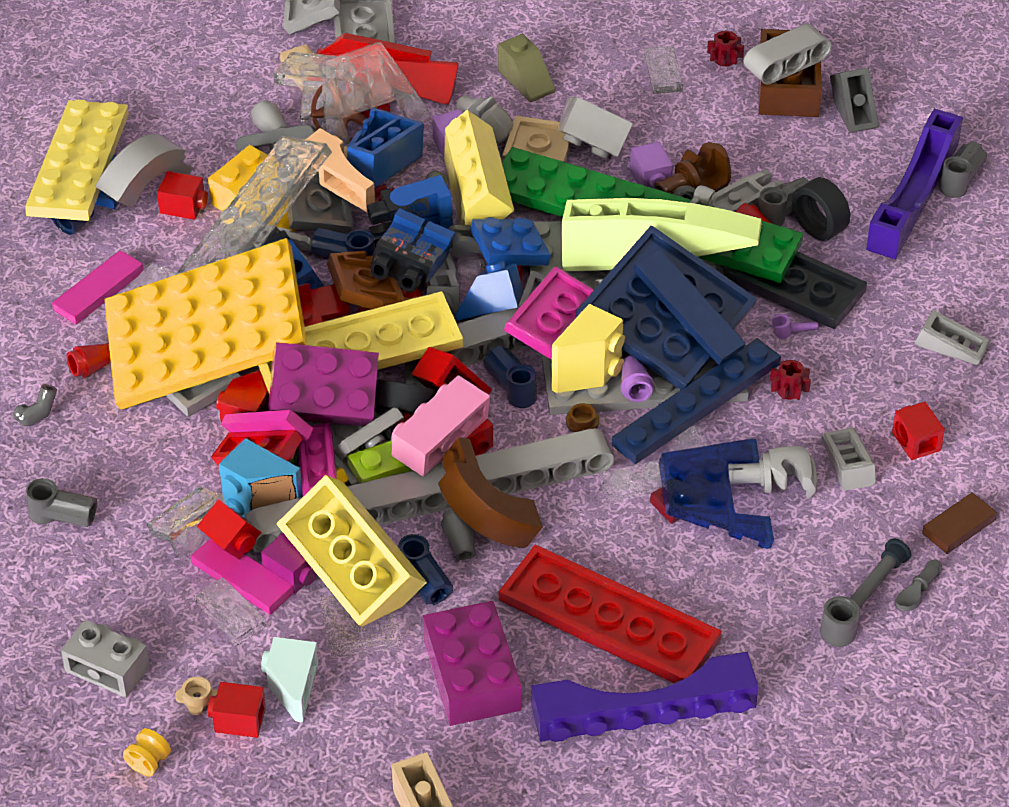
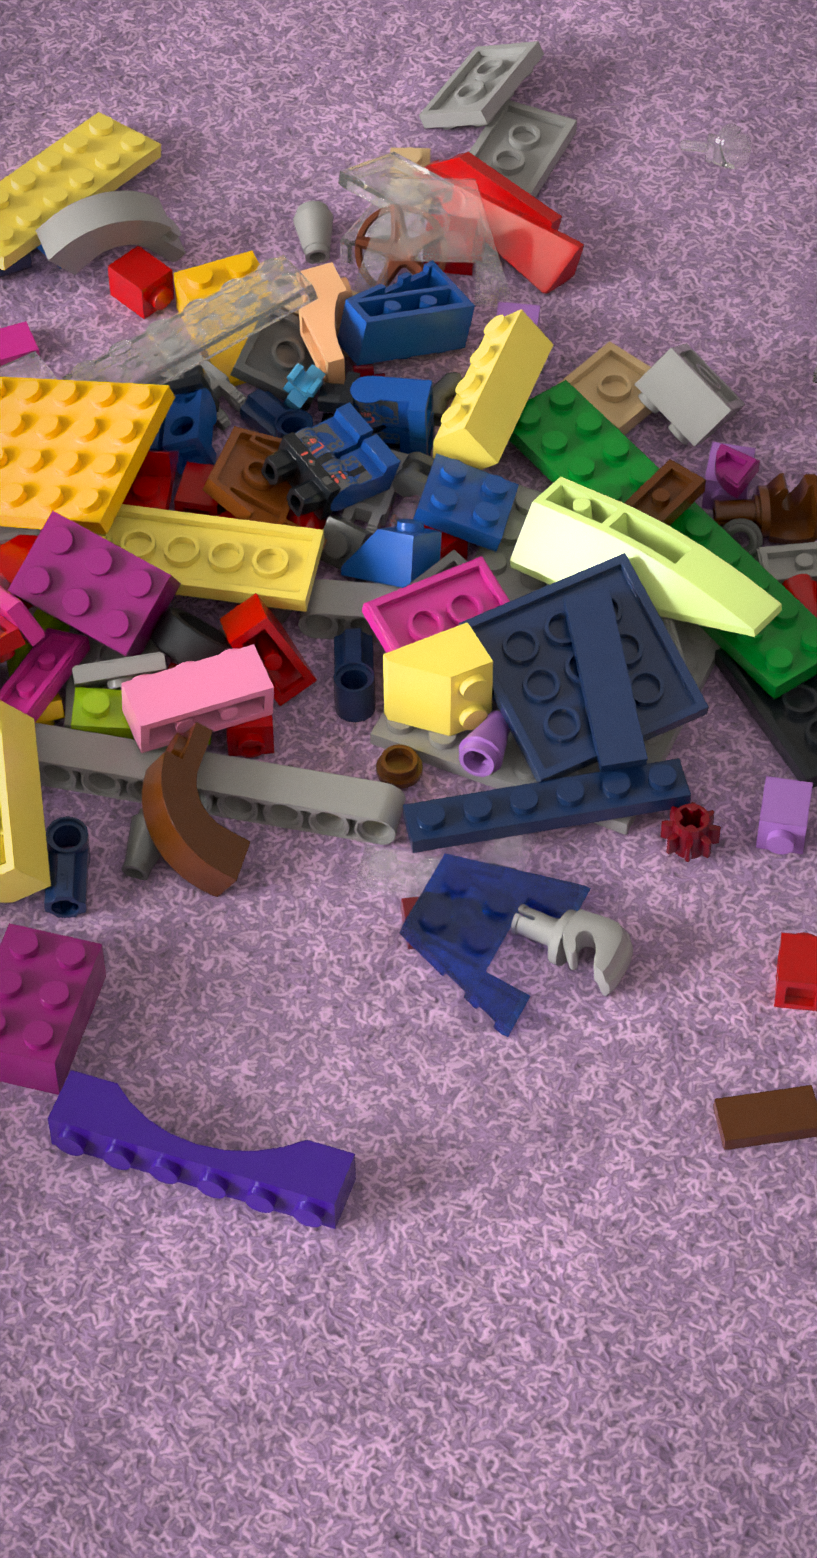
camera: 30 degrees right, 5 degrees up
(271, 137) = (299, 255): plate -> none
(349, 214) = (302, 385): none -> dark azure plate
(489, 112) = (570, 330): light grey piece -> none
(524, 67) = (669, 284): olive slope -> none
(609, 615) = (242, 1028): red plate -> none
(636, 182) = (668, 492): none -> reddish brown plate
(658, 158) = (734, 469): none -> magenta tile
(703, 196) = (741, 542): light grey hand -> none
(784, 327) = (743, 762): medium lavender hand -> none
(837, 347) = (784, 815): none -> medium lavender brick
(843, 613) = (520, 1156): dark grey piece -> none
(851, 461) = (685, 992): light grey slope -> none
(910, 597) = (632, 1182): dark grey piece -> none

